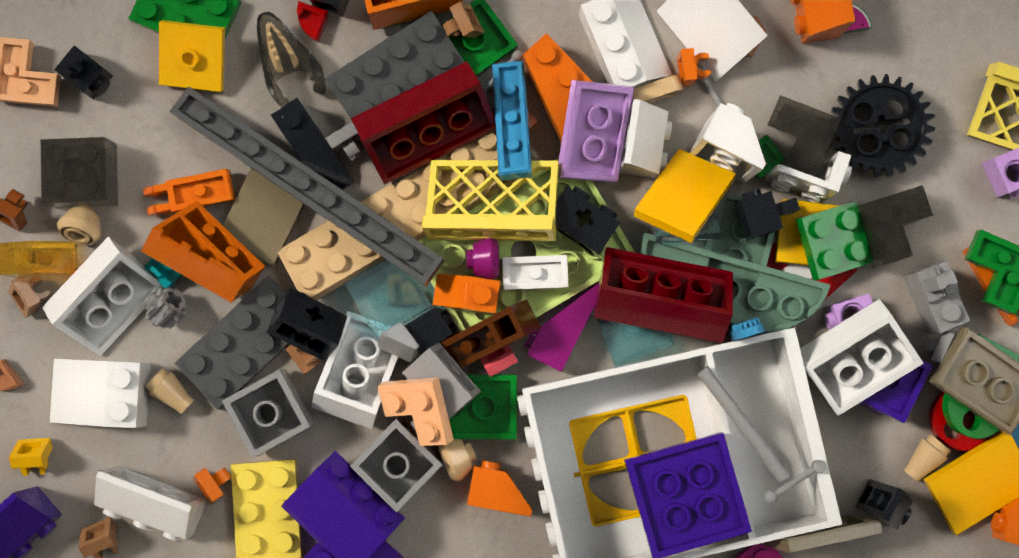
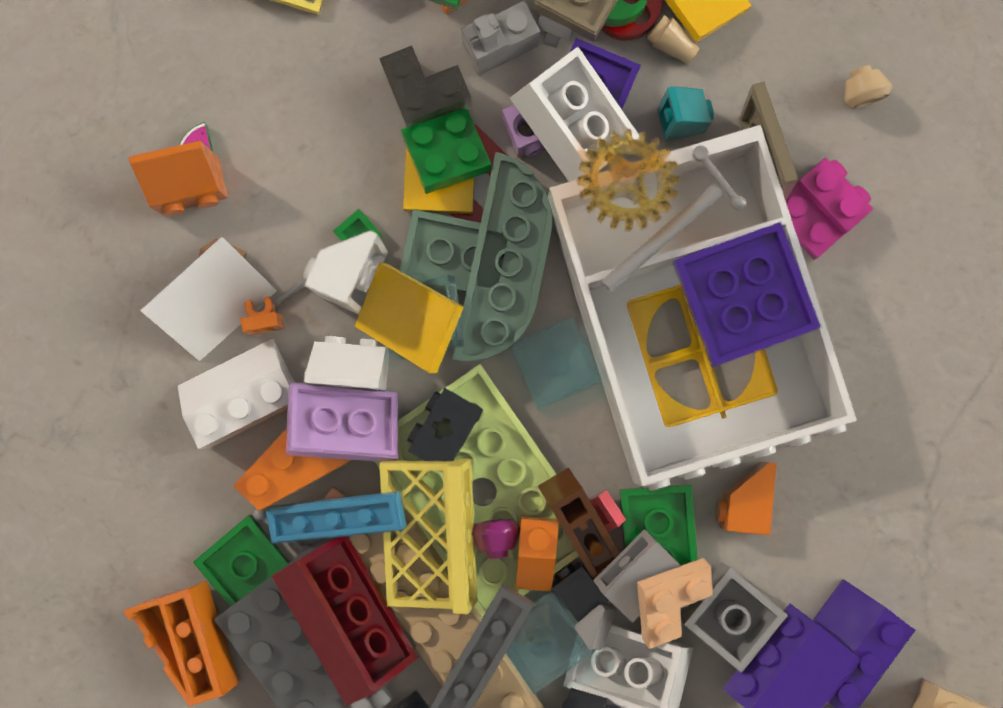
camera: 95 degrees left, 0 degrees up
(457, 458) = (719, 548): tan cone -> none
(464, 22) = (225, 580): medium nougat tile -> none
(535, 272) = (506, 478): white plate -> none
(559, 334) = (571, 444): magenta slope -> none
(659, 89) = (290, 353): tan beam -> none
(664, 295) = (522, 332): dark red slope -> none
(746, 329) = (555, 240): dark azure piece -> none
(761, 215) = (422, 232): black brick -> none
(813, 130) = (331, 178): clear smoke brick -> none
(813, 189) = (374, 156): white bracket -> none
(822, 383) = (621, 167): none -> clear yellow gear
(857, 462) = (684, 112): none -> teal slope
(885, 503) = (729, 81): black slope -> none
(887, 152) = (285, 114): black gear -> none

